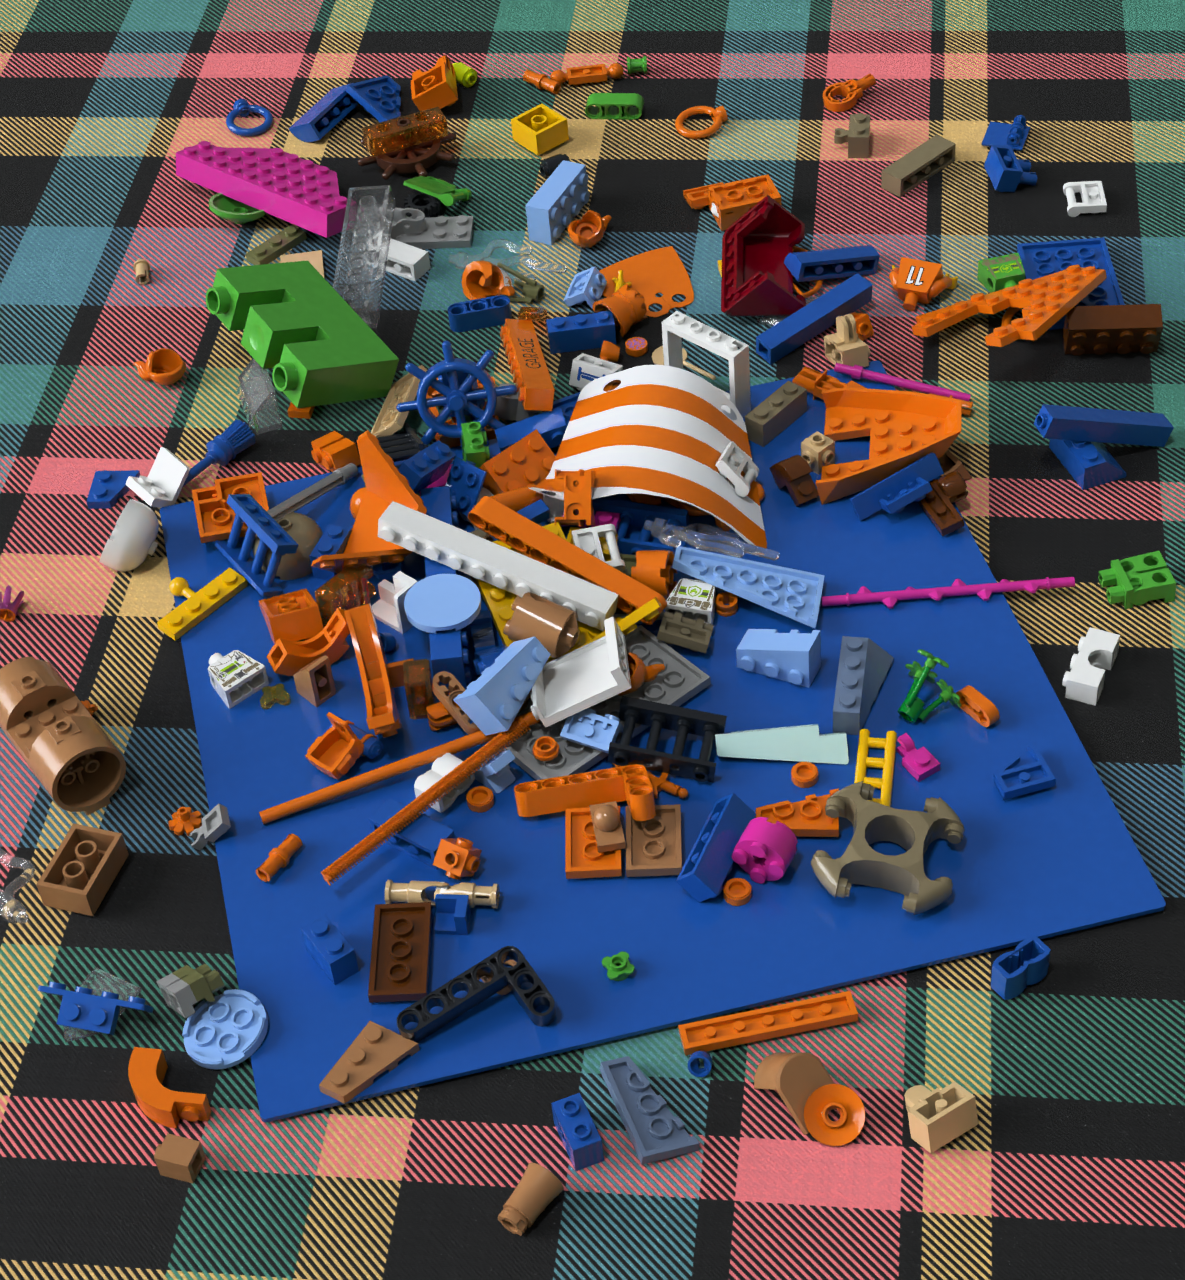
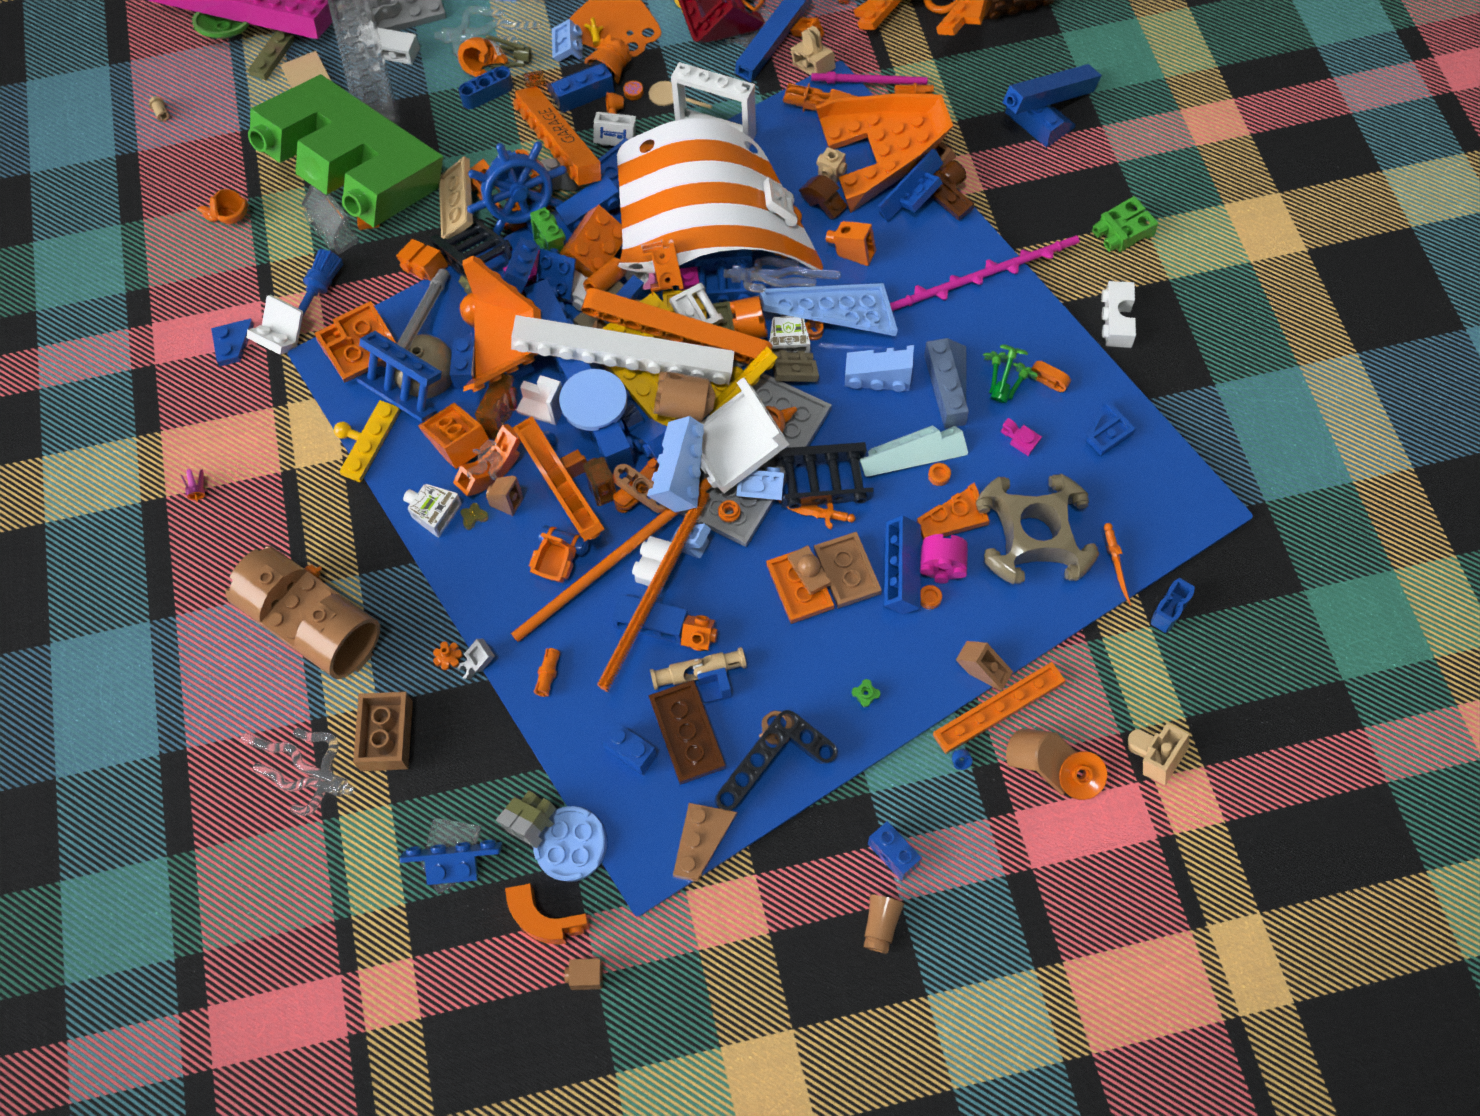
camera: 20 degrees left, 20 degrees up
(131, 538) = (278, 392): white cylinder -> none
(311, 633) = (491, 456): none -> clear piece
(480, 799) = (689, 568): orange tile -> none
(580, 790) = (782, 536): orange beam -> none
(644, 1114) = (944, 824): sand blue wing -> none
(767, 970) = (984, 664): none -> medium nougat slope
(776, 413) = (782, 133): dark tan brick -> none
(808, 528) = (853, 241): none -> orange torso
(886, 763) = (998, 446): yellow bar -> none
(972, 894) = (1114, 549): none -> orange piece

